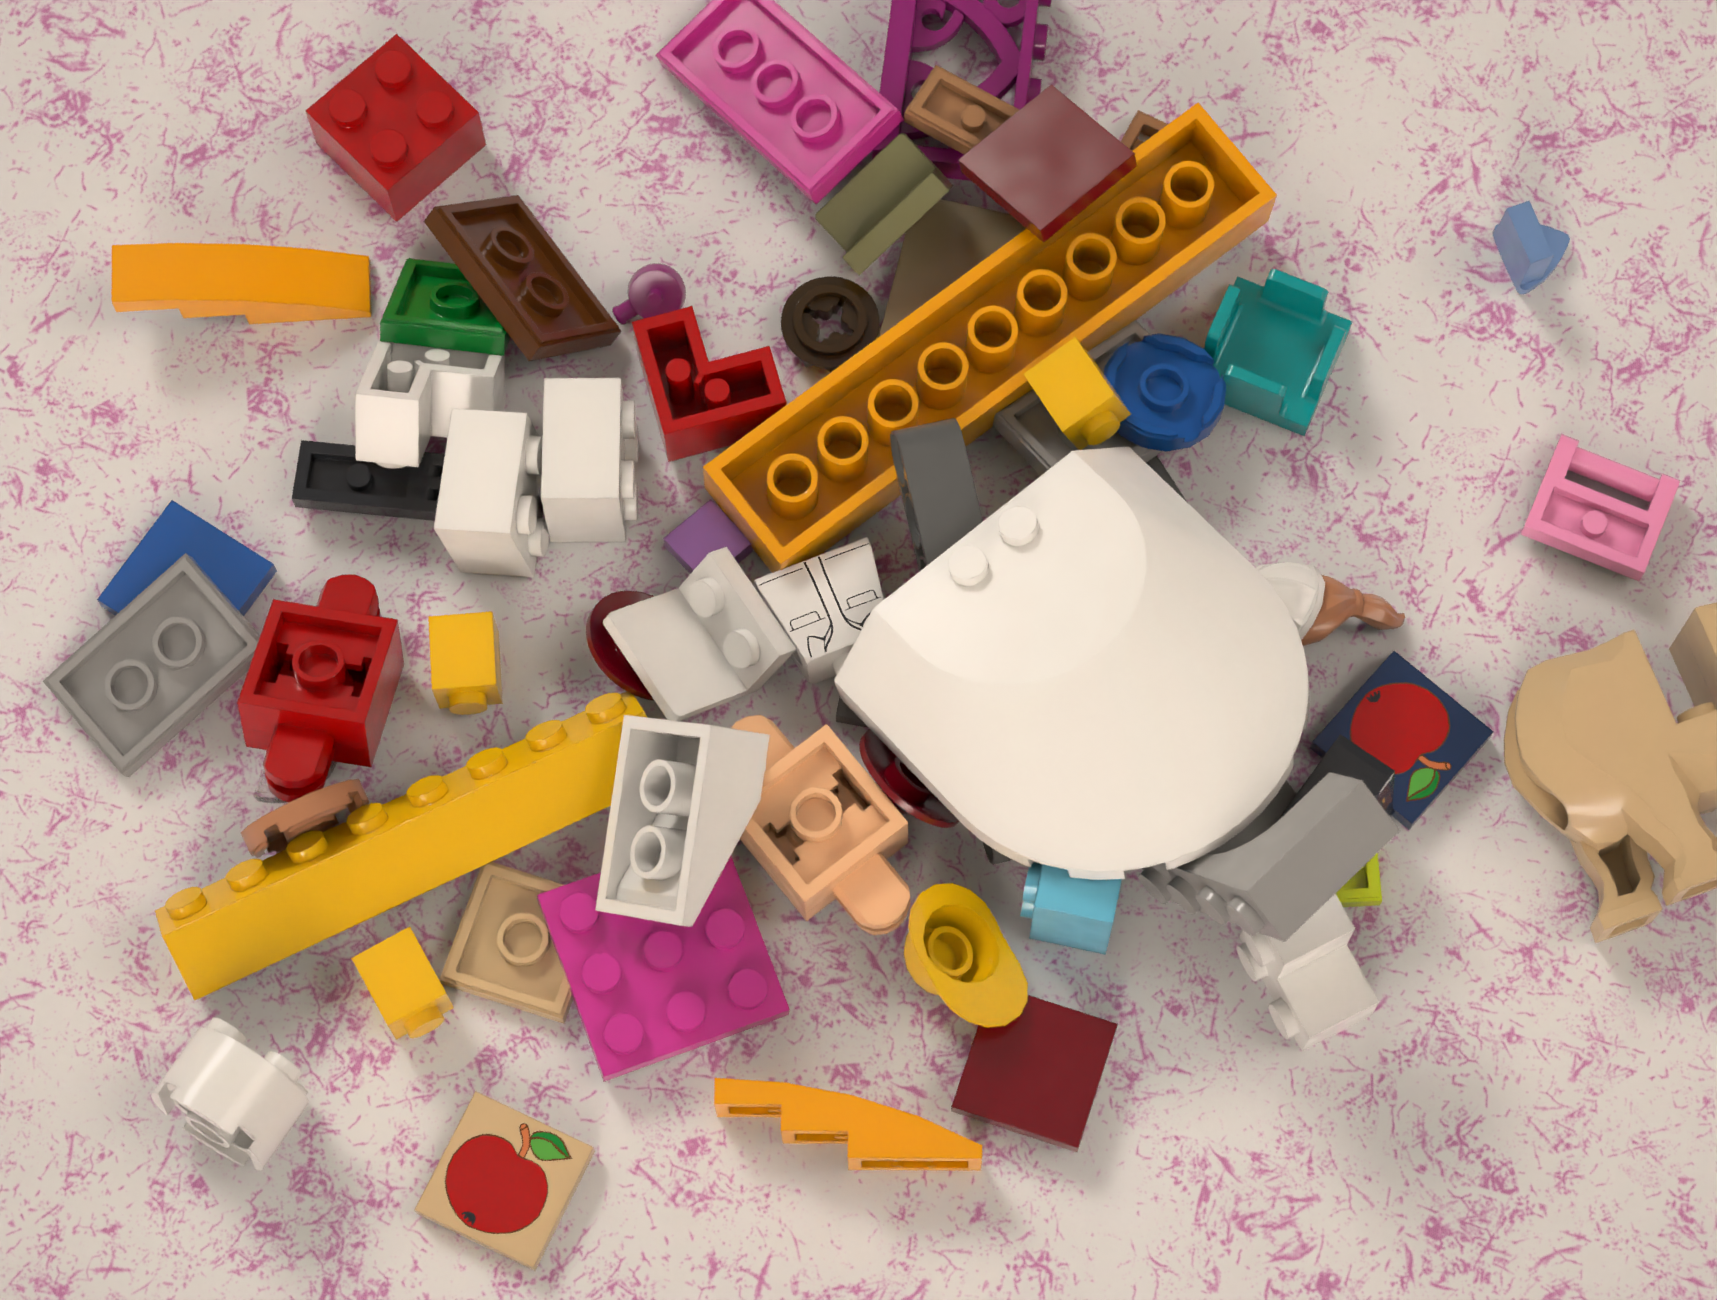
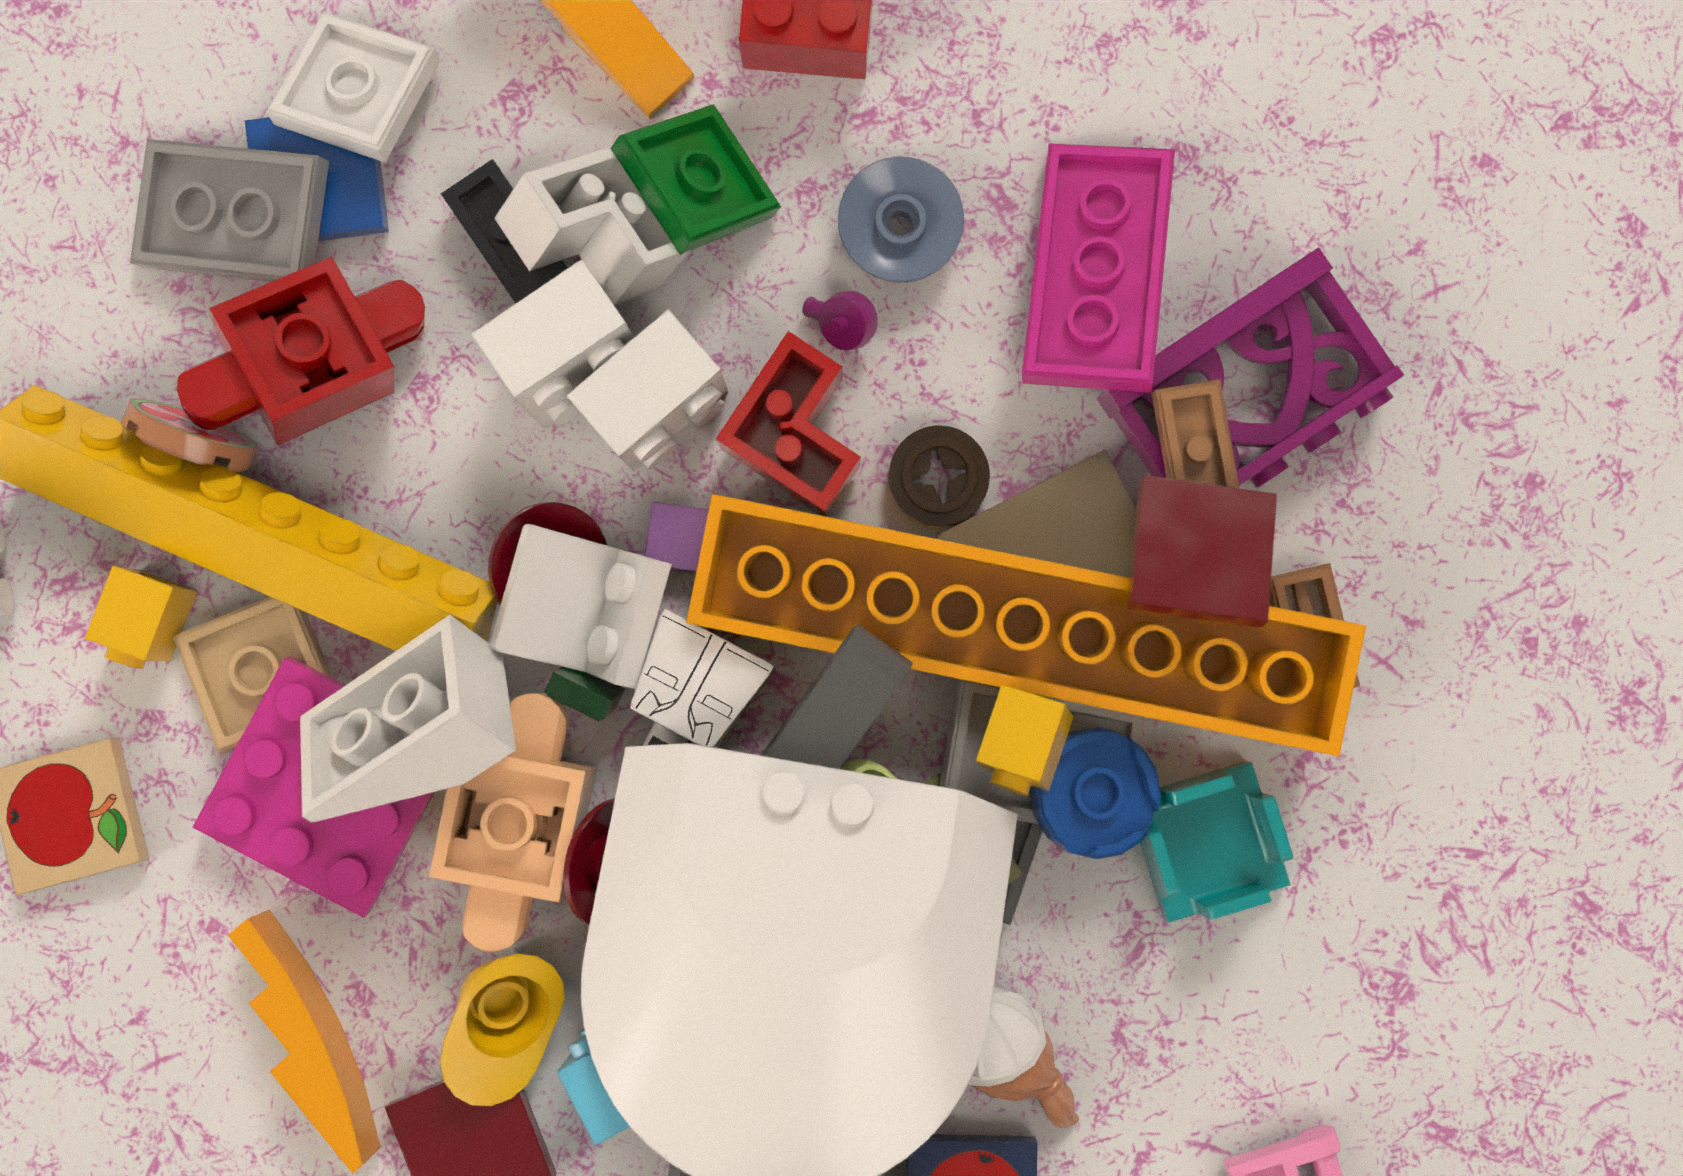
camera: 50 degrees right, 15 degrees up
(150, 497) = (353, 86): none -> white tile
(465, 662) = (423, 441): yellow brick -> none
(522, 277) = (763, 207): reddish brown tile -> none
(610, 172) = (906, 190): none -> sand blue dish
(764, 698) = (584, 692): none -> dark green tile
(882, 202) = (1069, 437): olive panel -> none
(1527, 247) = (1475, 975): medium blue tile -> none

